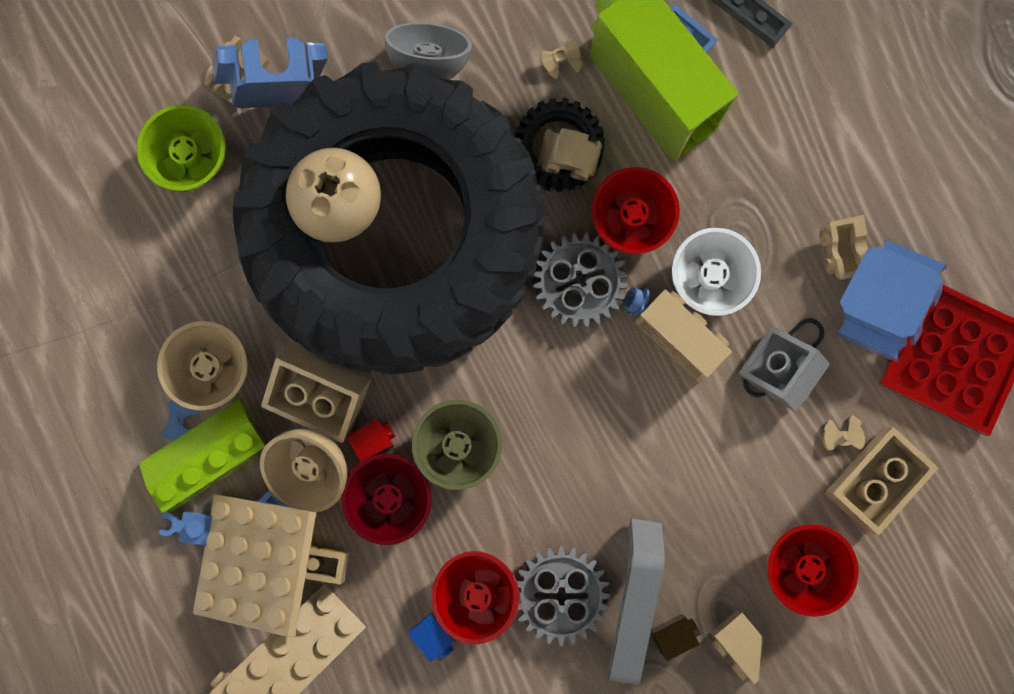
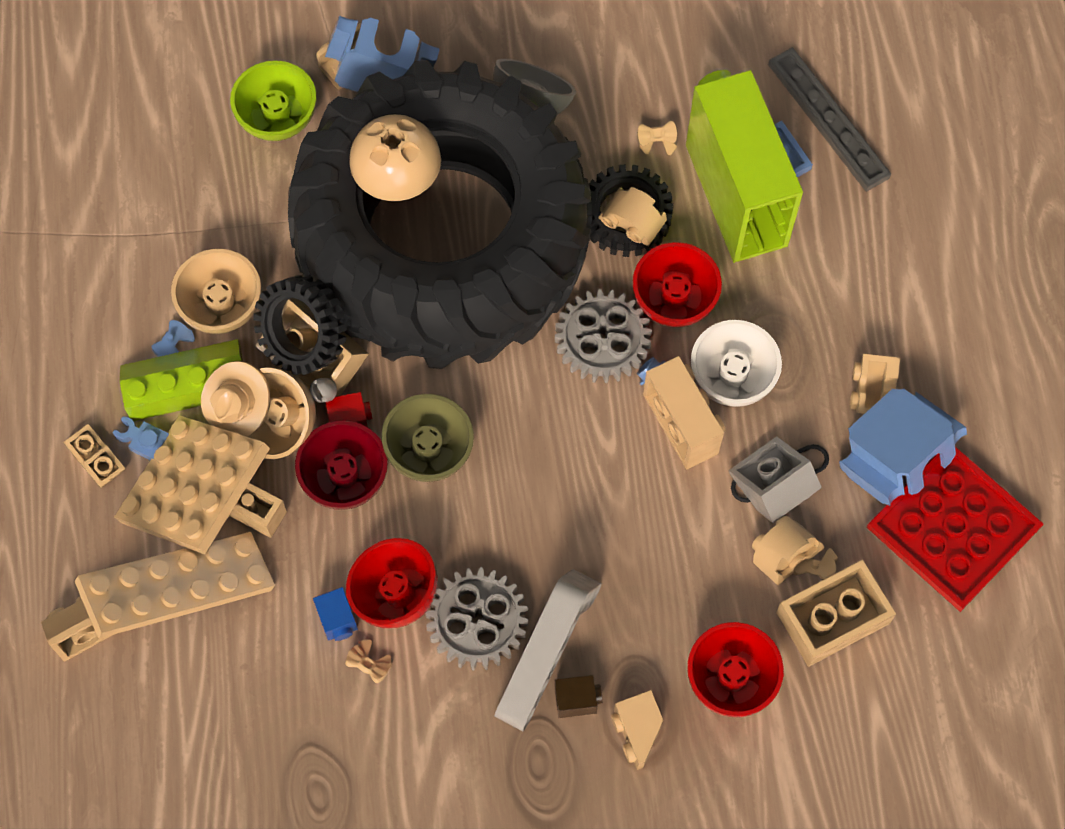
camera: 20 degrees right, 15 degrees down
(151, 560) = (94, 456): none -> tan slope
(264, 470) = (236, 398): none -> tan hat
(313, 367) = (326, 317): none -> black tyre
(342, 433) = (326, 387): none -> light grey hinge
(467, 669) = (358, 658): none -> tan piece
(814, 433) = (784, 548): none -> tan cylinder

